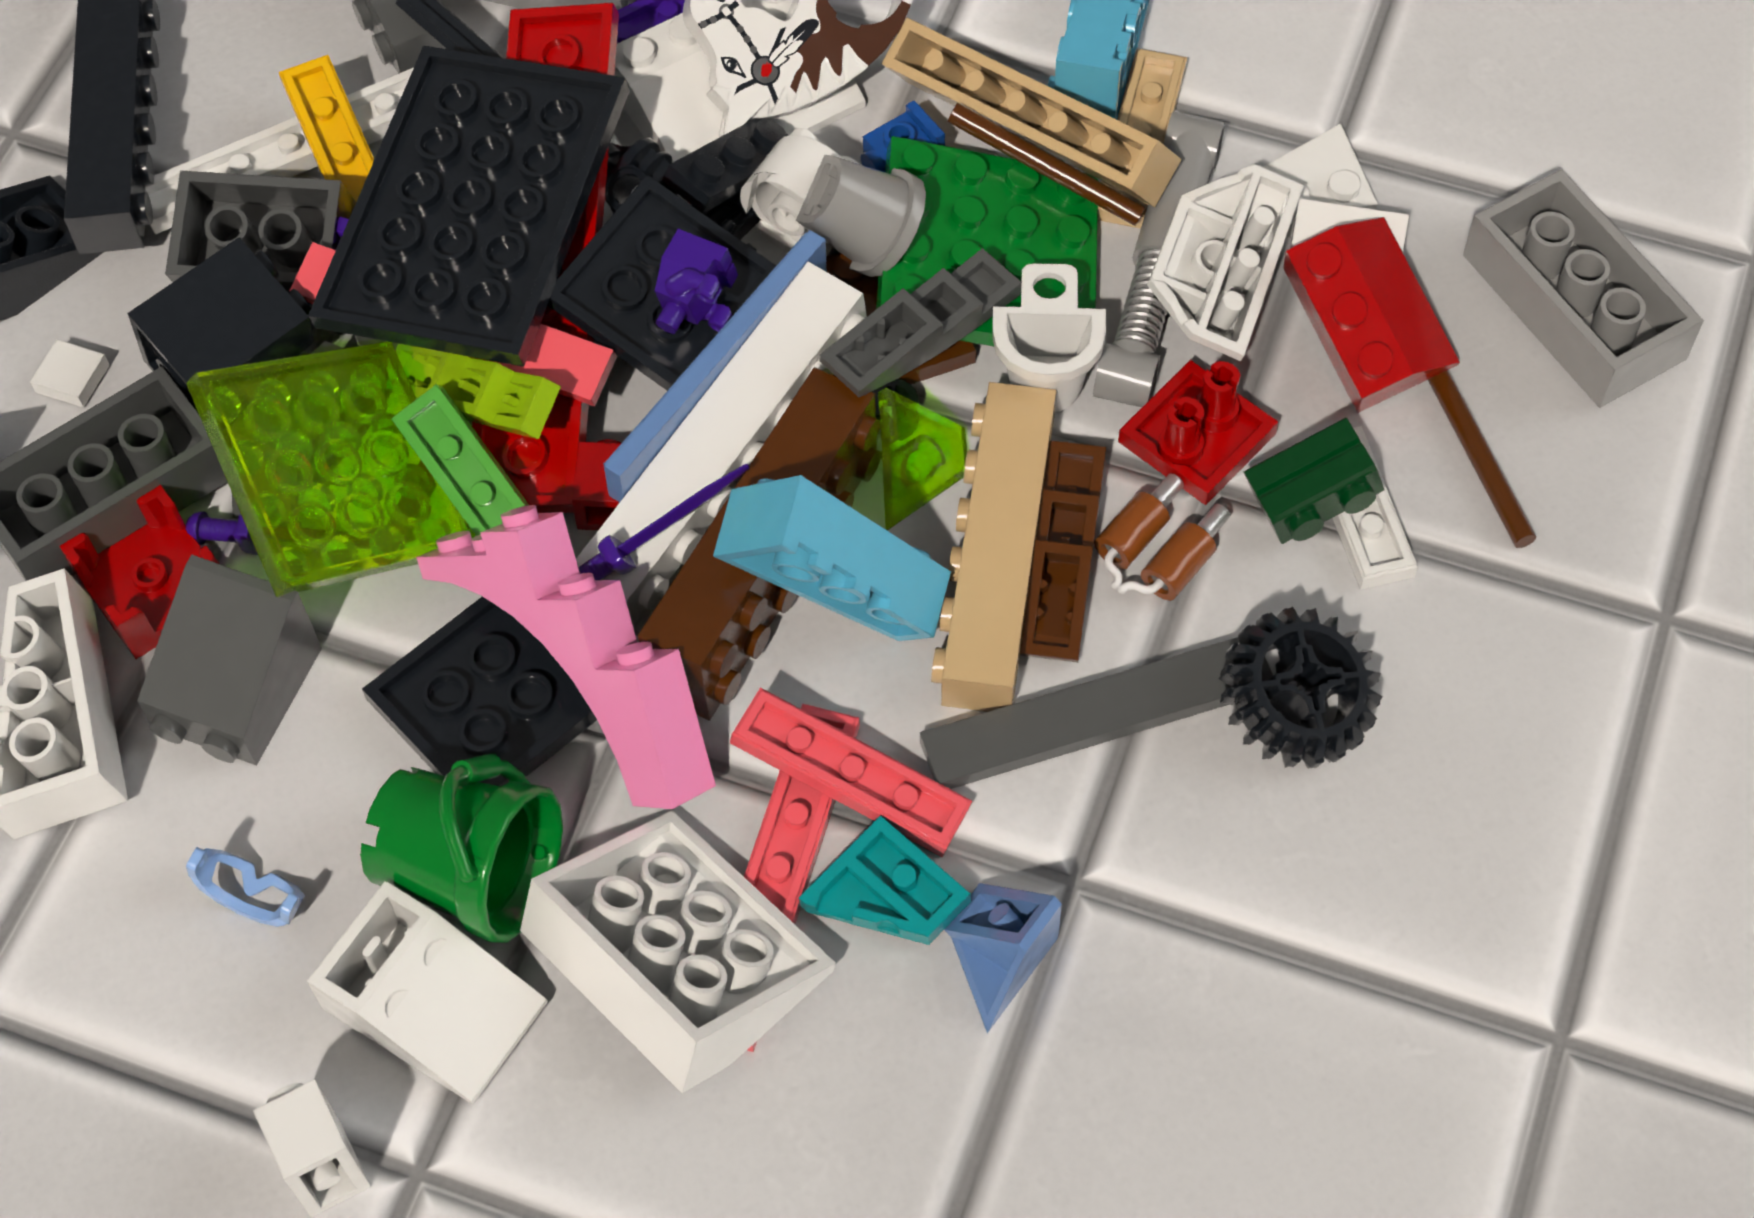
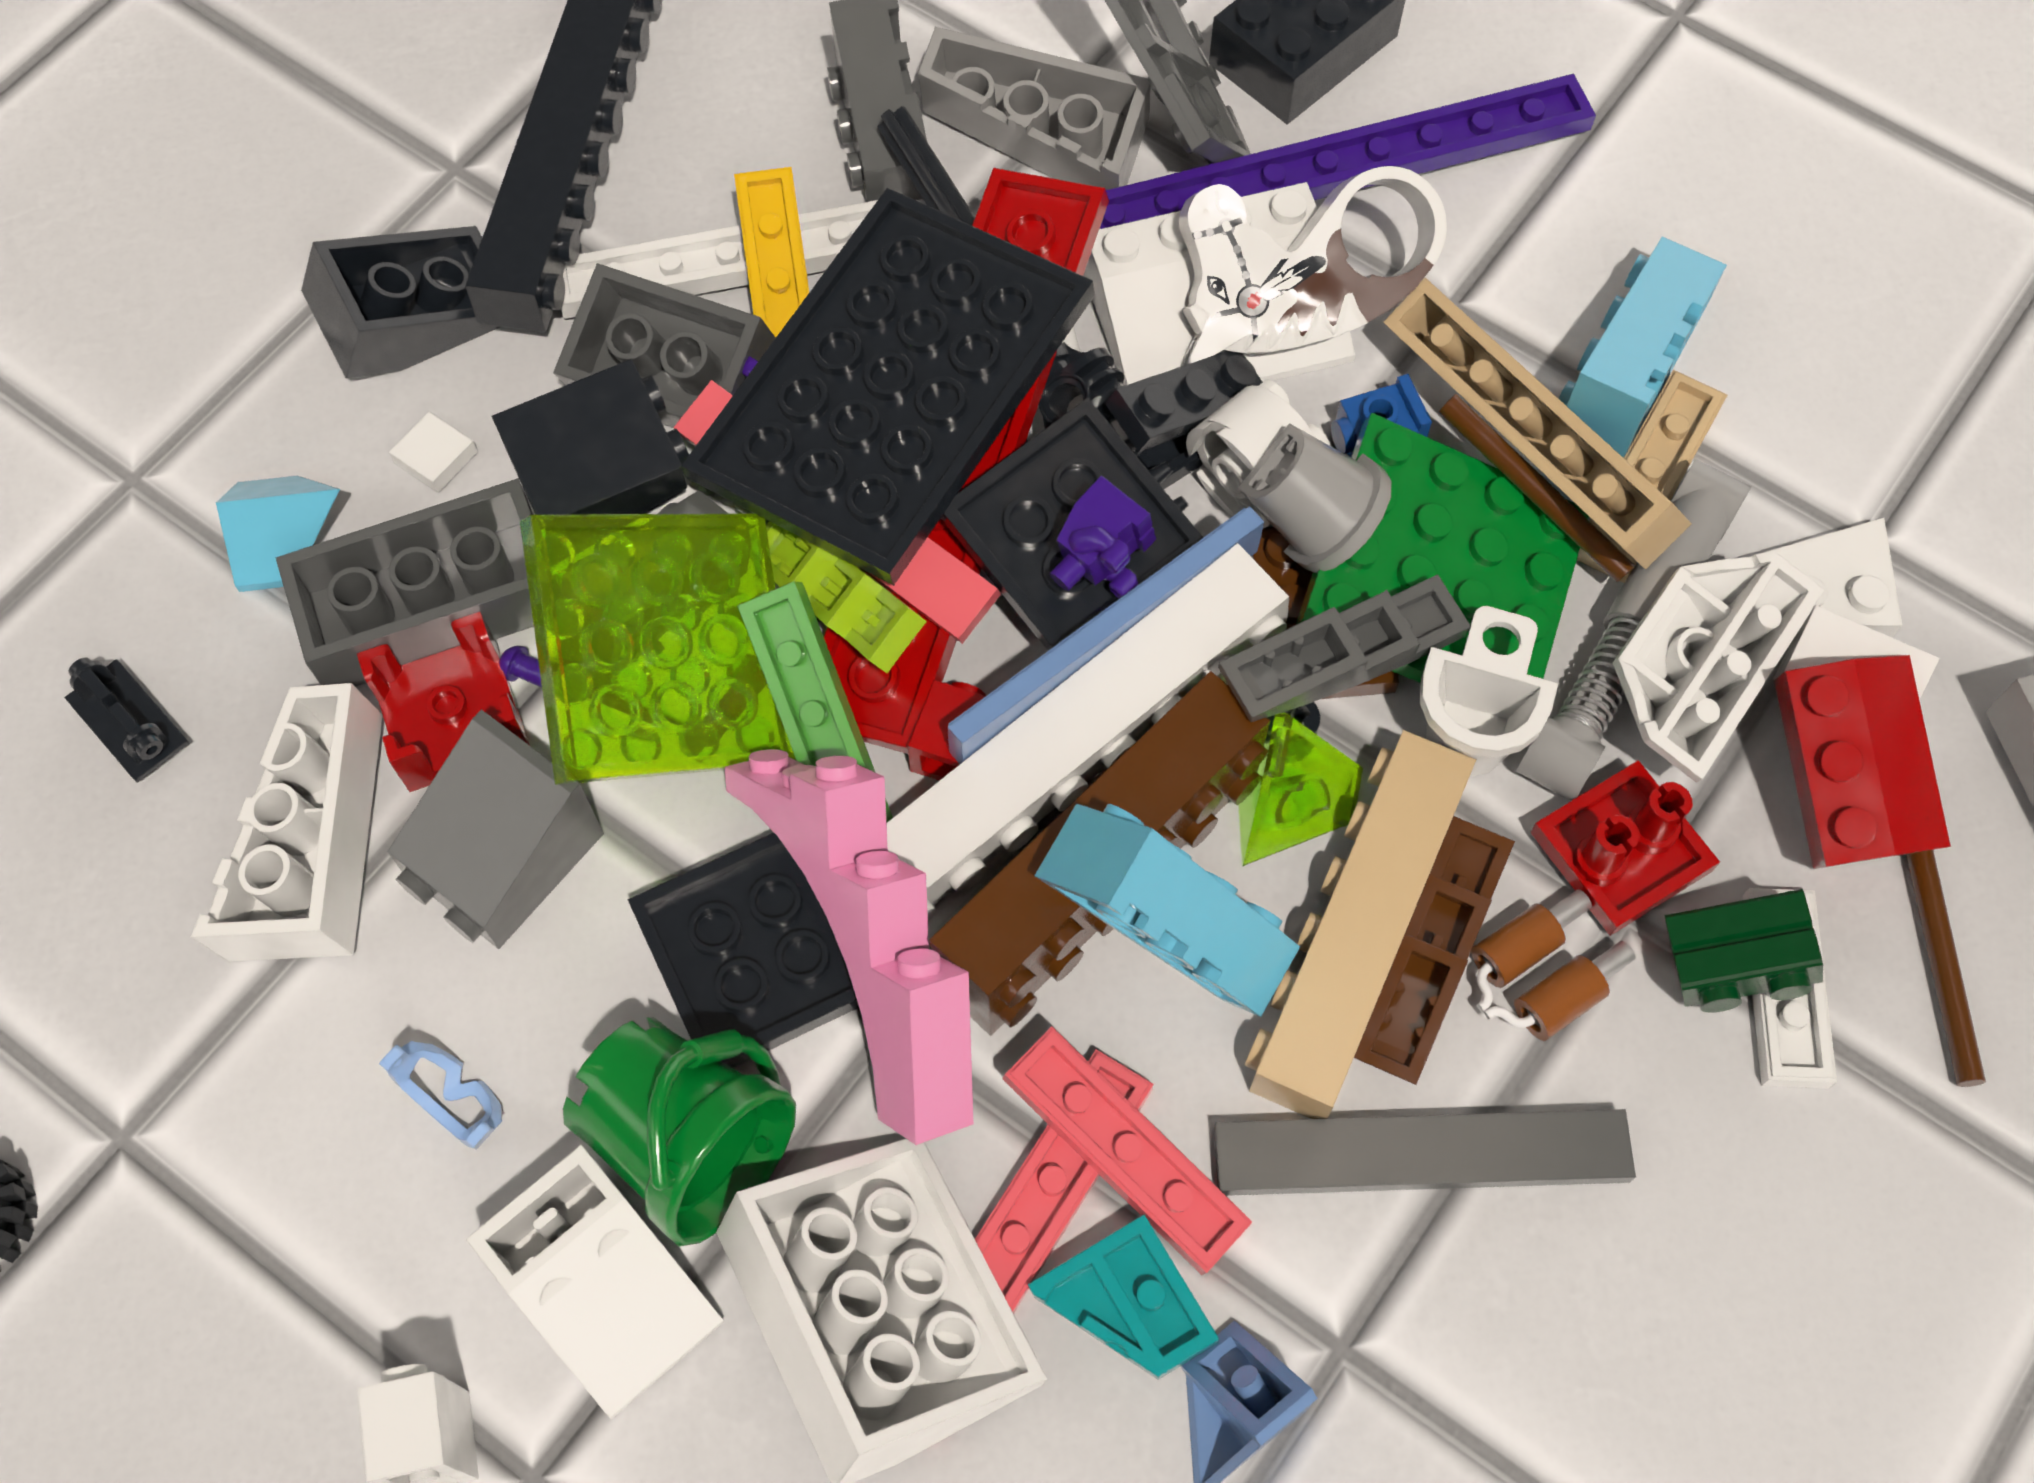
camera: 15 degrees right, 5 degrees up
(616, 555) = (935, 829): dark purple sword -> none
(1319, 662) = (1720, 1203): black gear -> none

